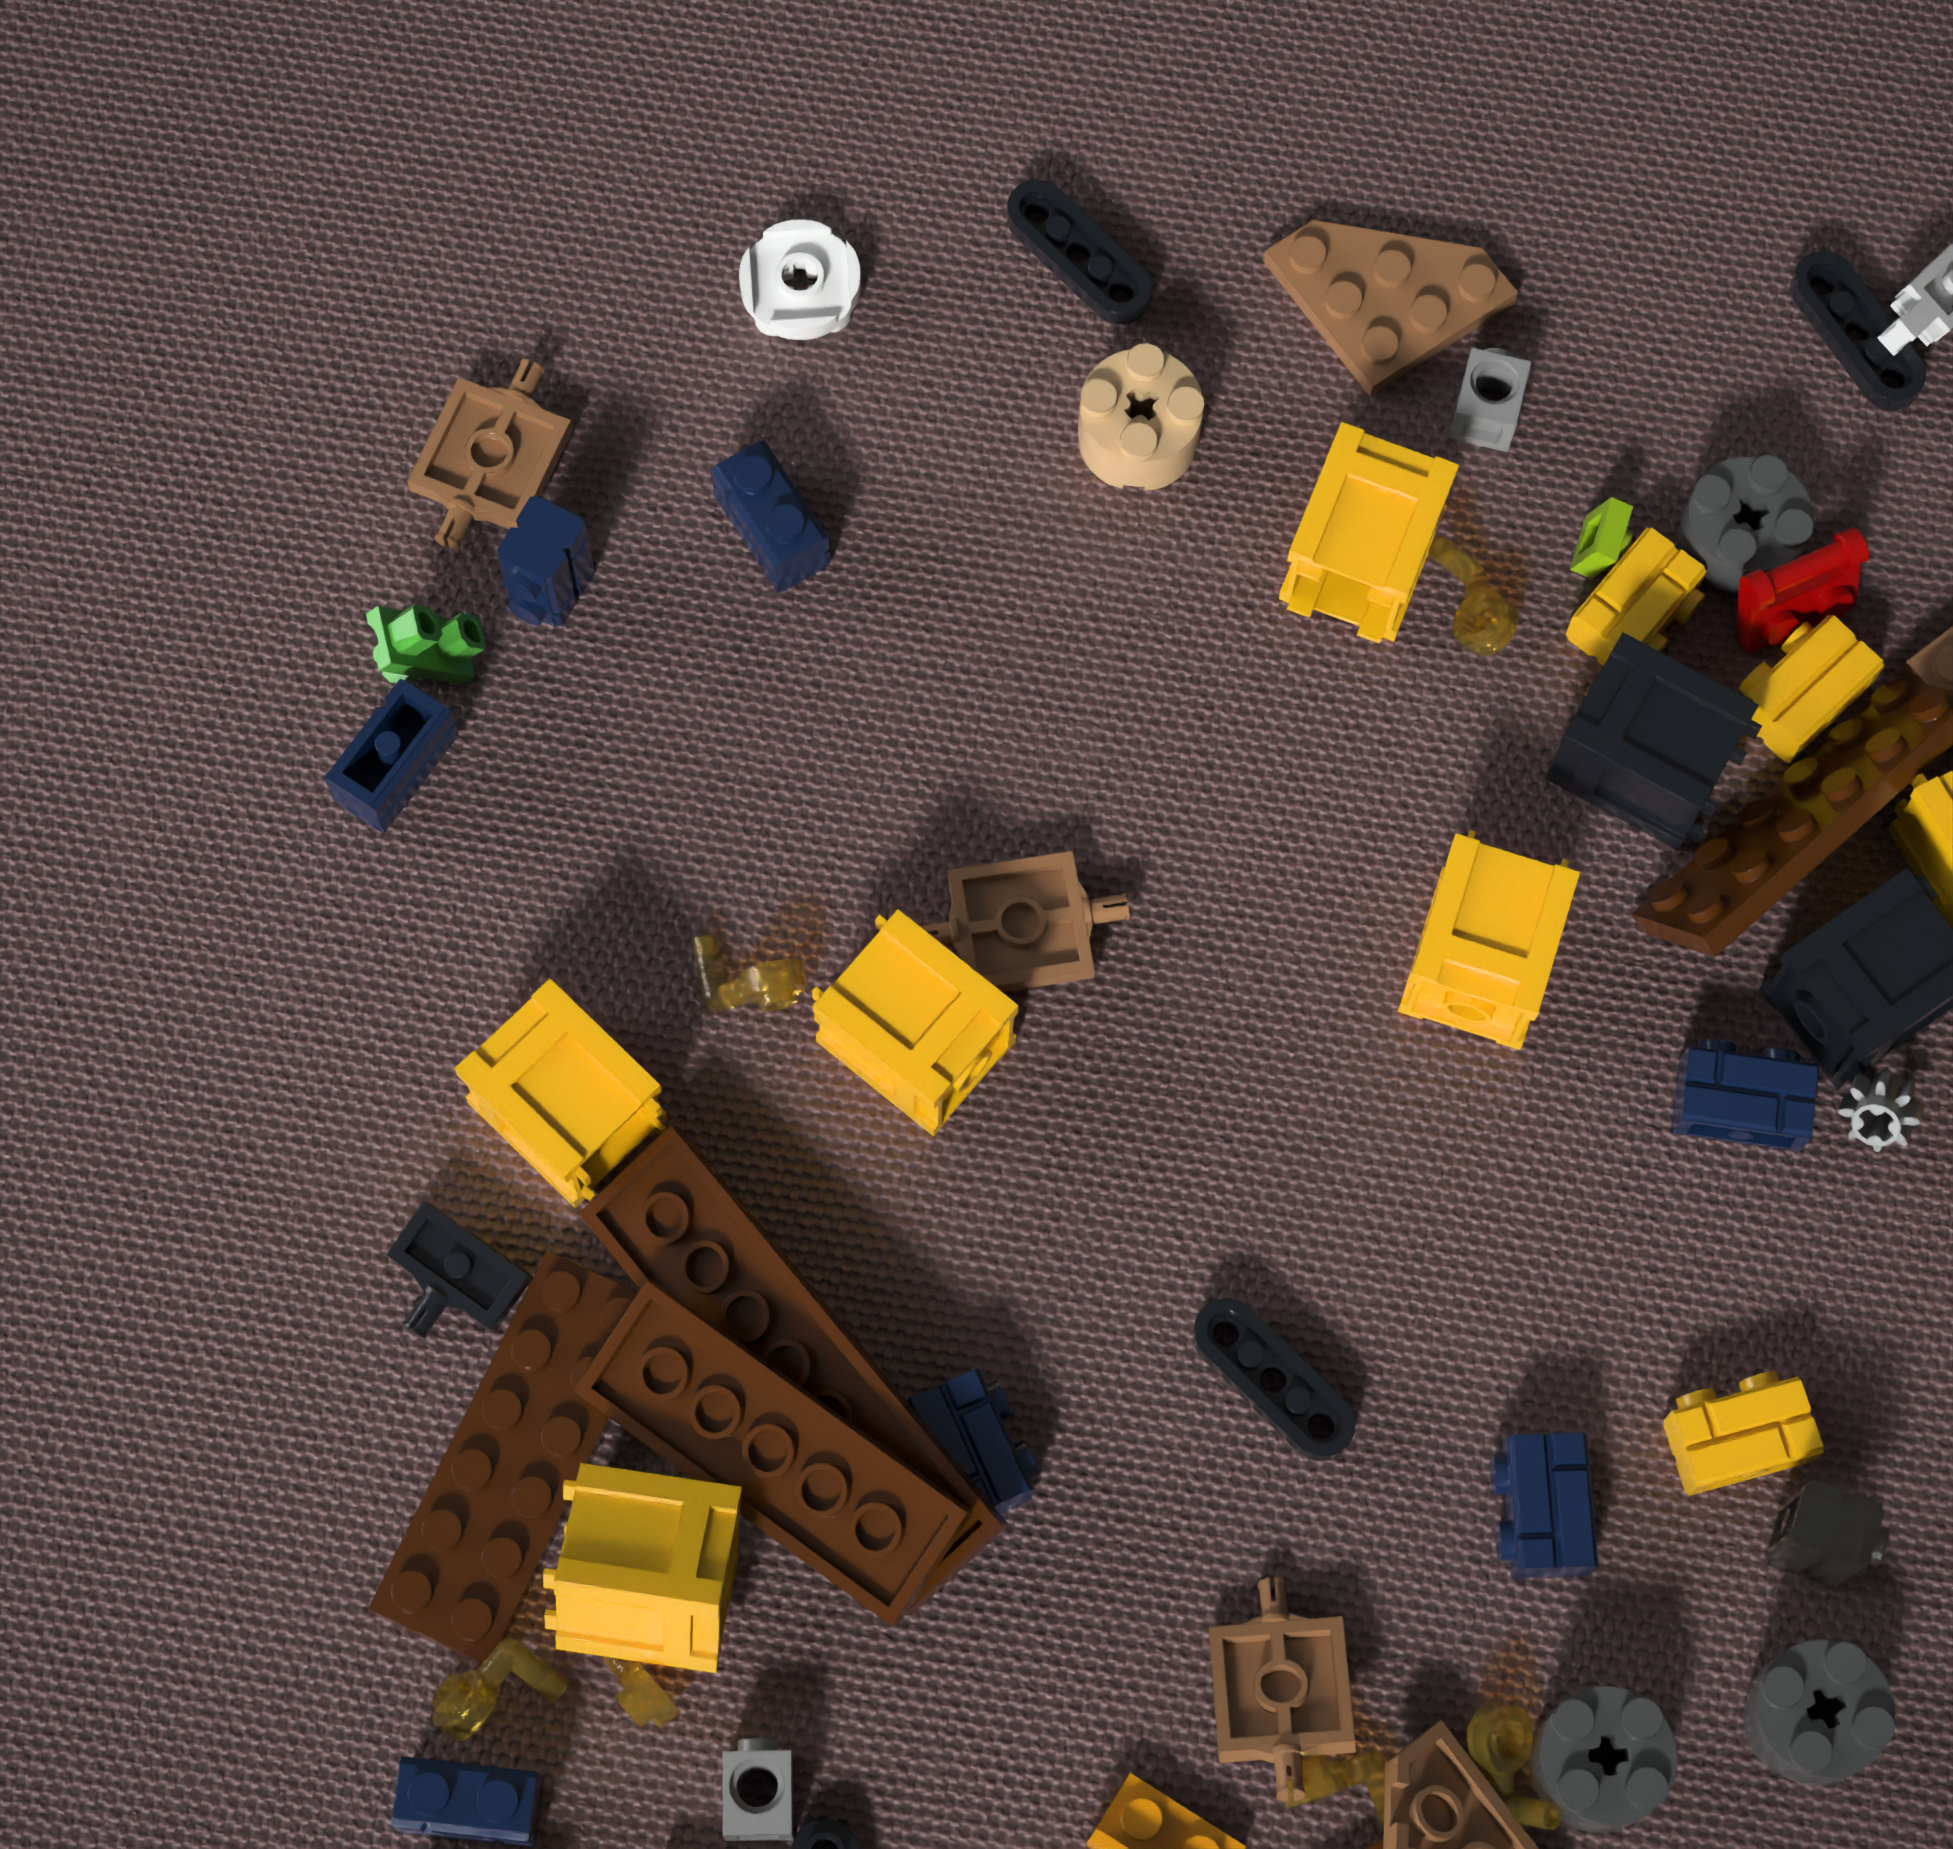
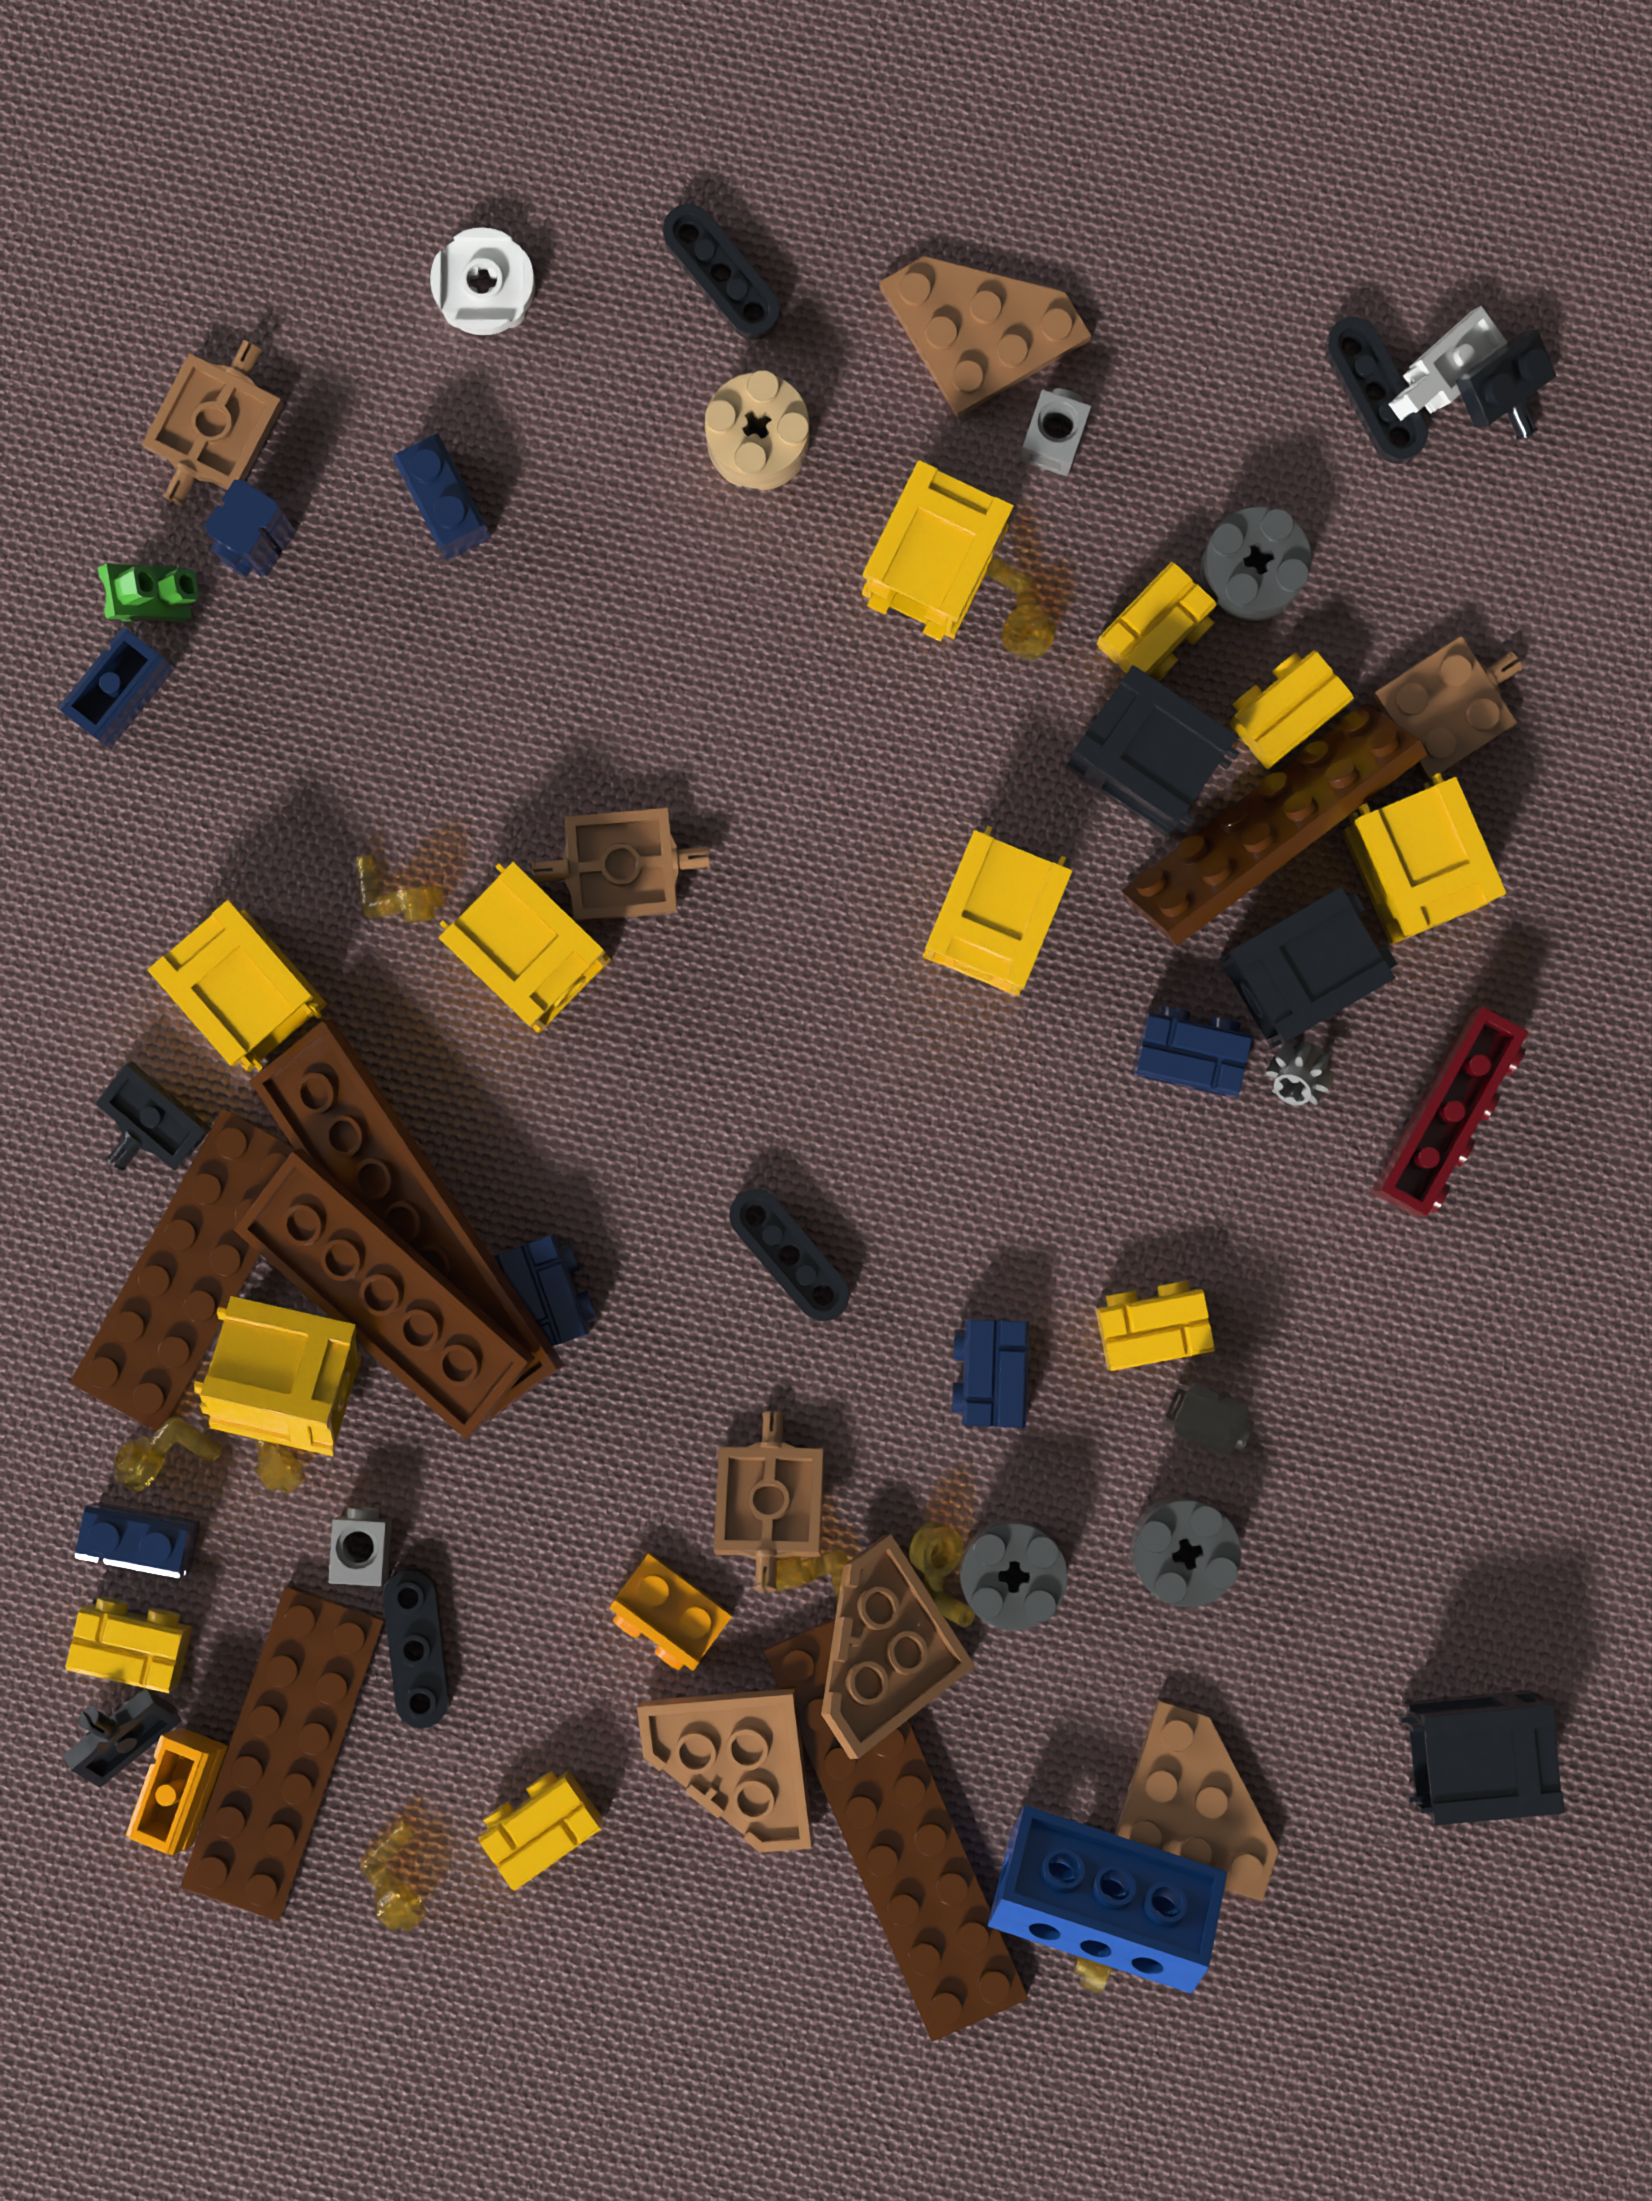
camera: 10 degrees right, 15 degrees up
(1602, 538) = (1135, 565): lime plate -> none
(1800, 591) = (1301, 626): red plate -> none

